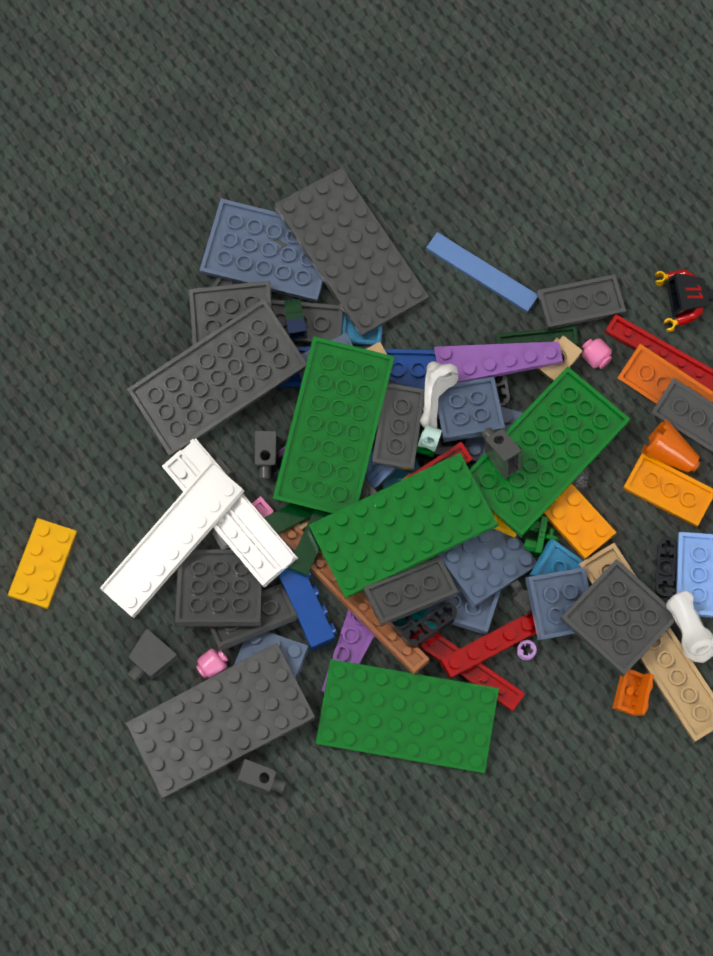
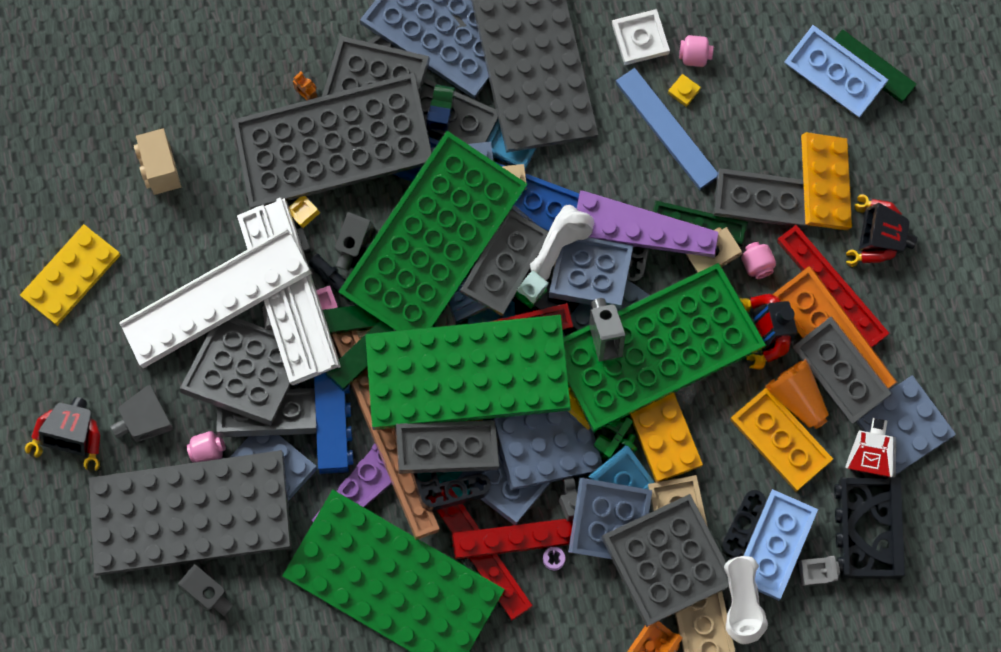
camera: 20 degrees right, 0 degrees up
(81, 445) = (157, 162): none -> tan brick
(93, 690) = (68, 430): none -> torso
(176, 341) = (304, 87): none -> orange plate
(214, 443) = (303, 211): none -> yellow plate
(256, 487) = (328, 273): none -> black pin
(432, 205) = (640, 37): none -> white plate
(481, 201) = (695, 51): none -> bright pink head
(483, 236) = (684, 90): none -> yellow plate
(599, 179) = (836, 71): none -> light blue plate
(625, 164) = (898, 84): none -> dark green tile
(626, 270) = (826, 181): none -> light orange plate
(629, 398) = (775, 325): none -> torso

